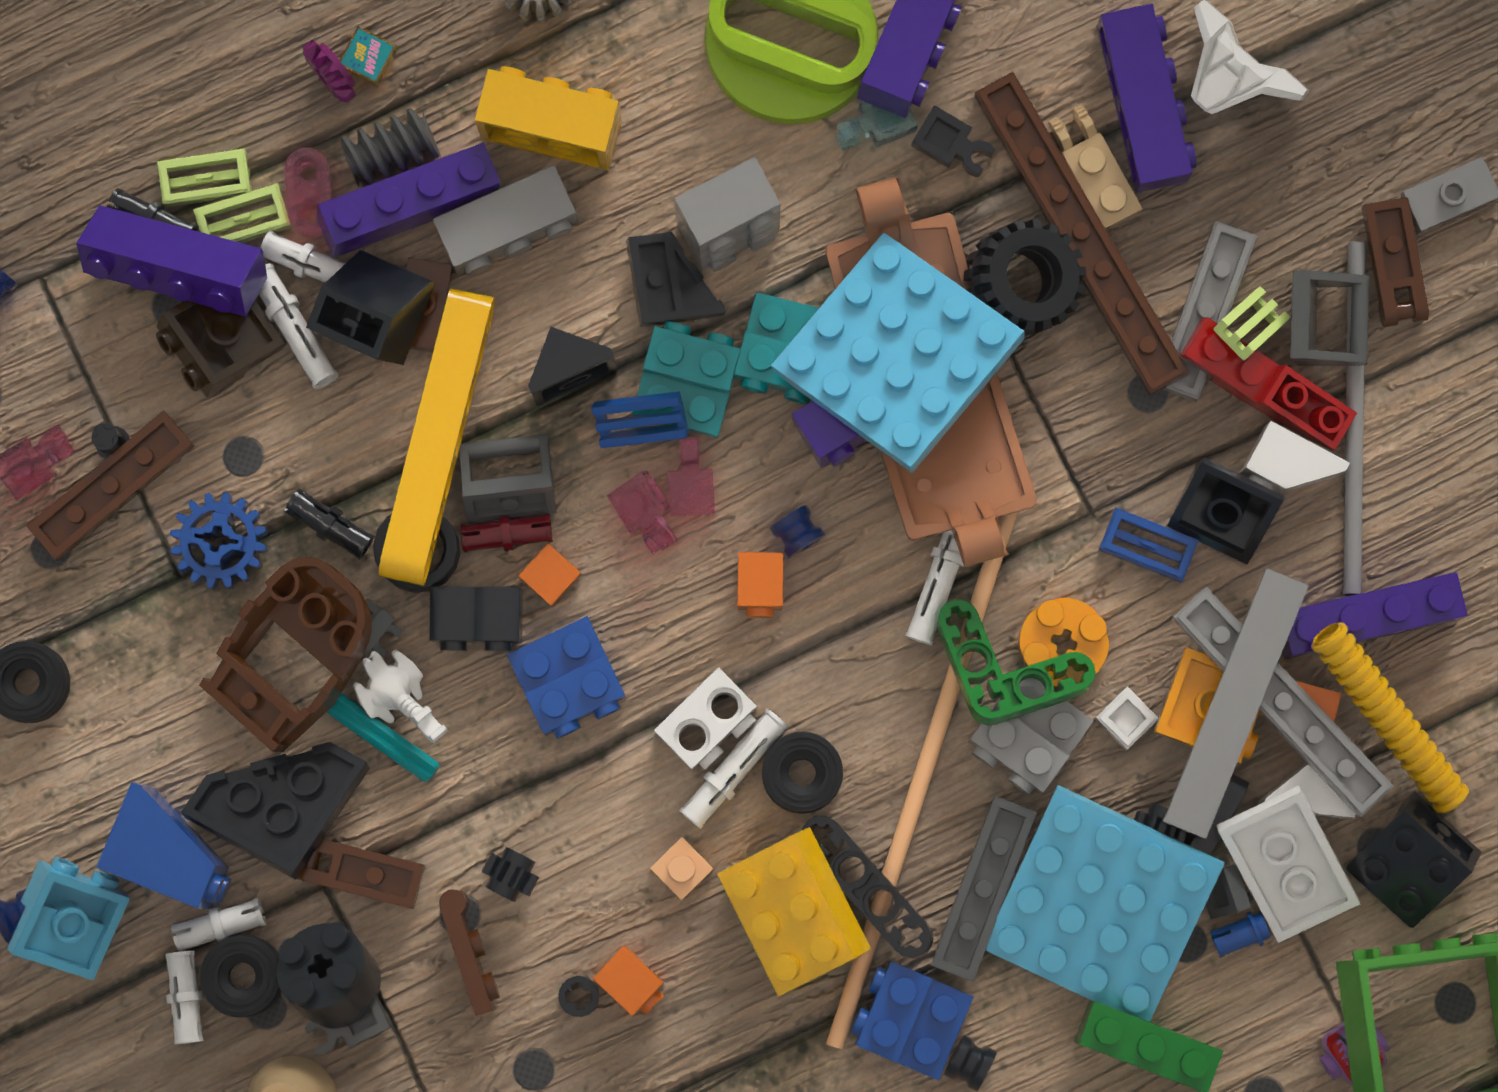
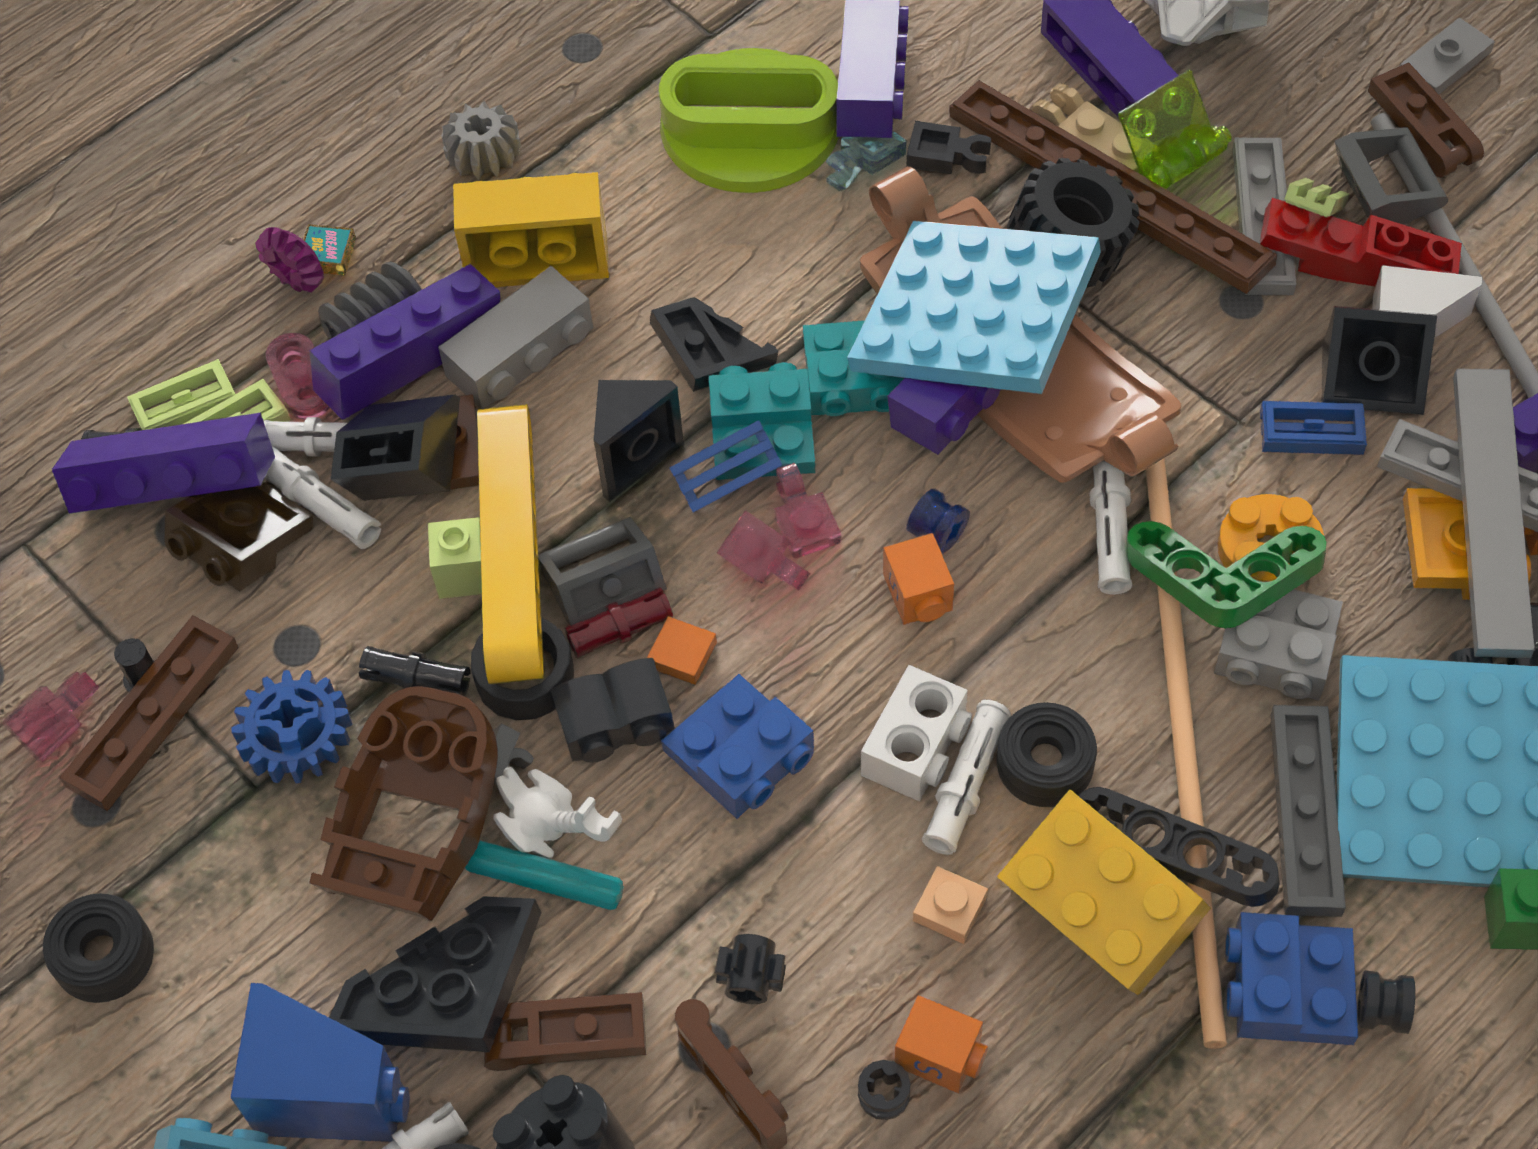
camera: 15 degrees left, 25 degrees down
(390, 430) = (455, 557): none -> yellowish green brick
(728, 215) = (748, 241): light grey brick -> none
(1126, 718) = (1375, 593): white tile -> none
(1154, 209) = (1172, 131): none -> clear neon green hinge

